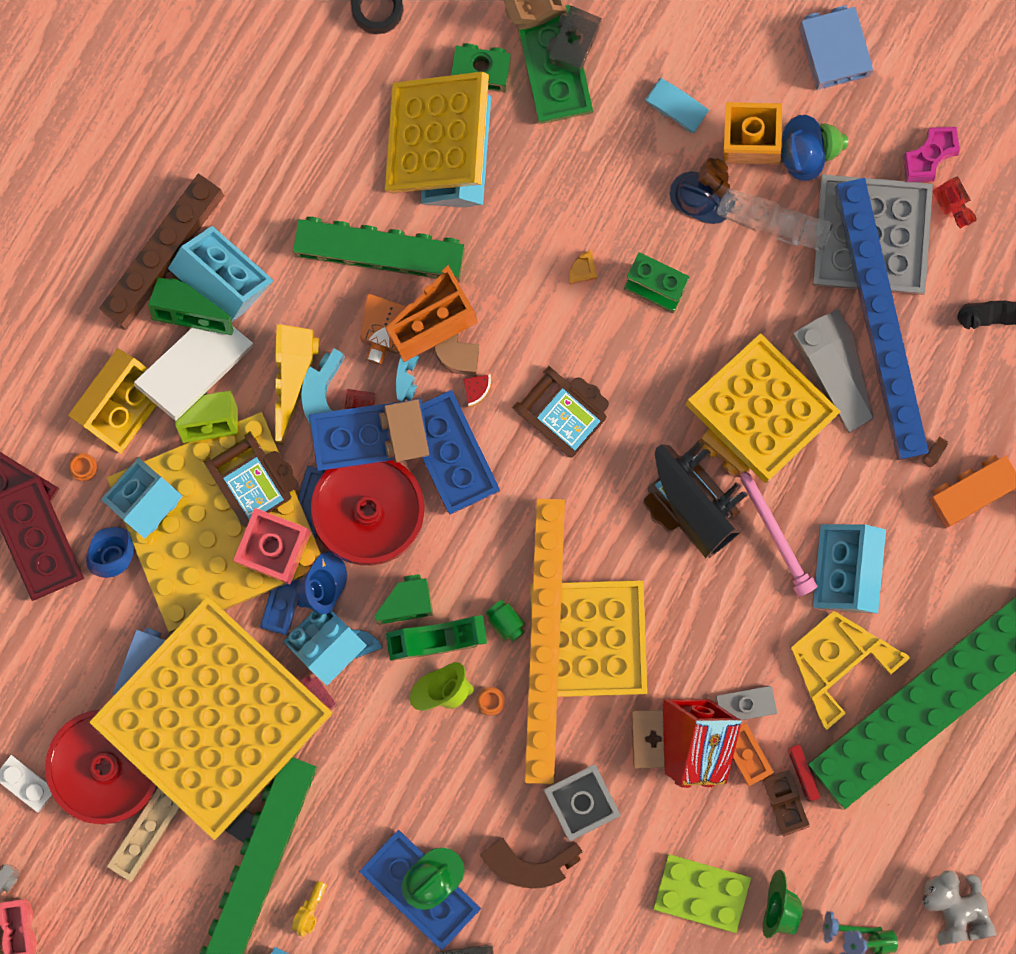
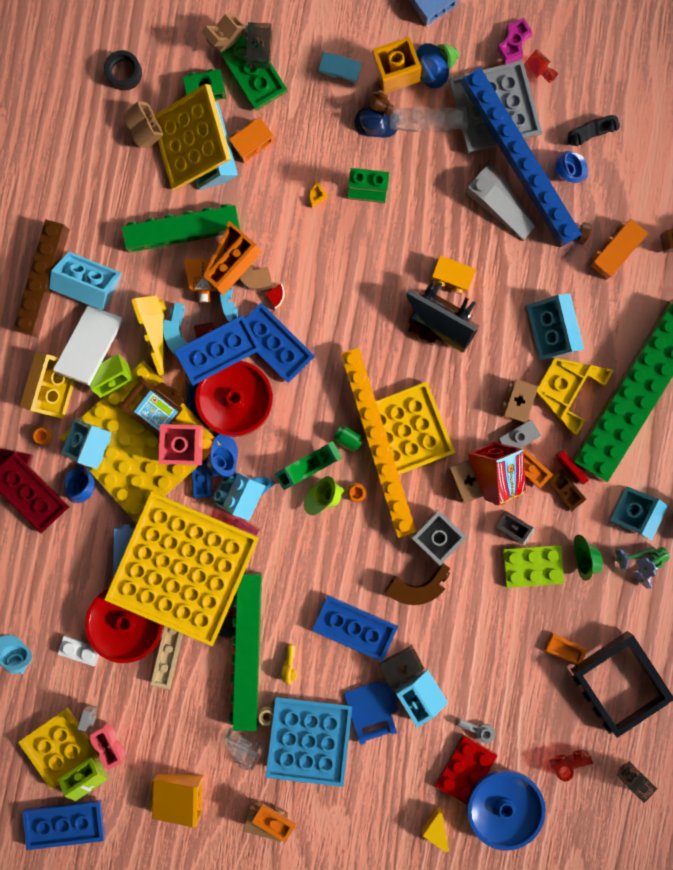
camera: 20 degrees left, 5 degrees up
(182, 305) = (66, 309): green slope -> none
(377, 90) = (142, 124): none -> medium nougat brick
(404, 431) = (240, 339): medium nougat brick -> none
(406, 601) = (280, 448): green slope -> none
(433, 878) = (360, 618): green piece -> none
(519, 161) = (251, 139): none -> orange brick
(568, 415) = (341, 292): piece -> none
(694, 828) = (515, 528): none -> light grey slope
(762, 408) = (465, 243): yellow plate -> none
(777, 647) = (527, 395): none -> medium nougat brick
(802, 582) = (529, 347): bright pink piece -> none
(876, 871) = (639, 513): none -> medium azure slope
(949, 355) = (571, 167): none -> blue hat

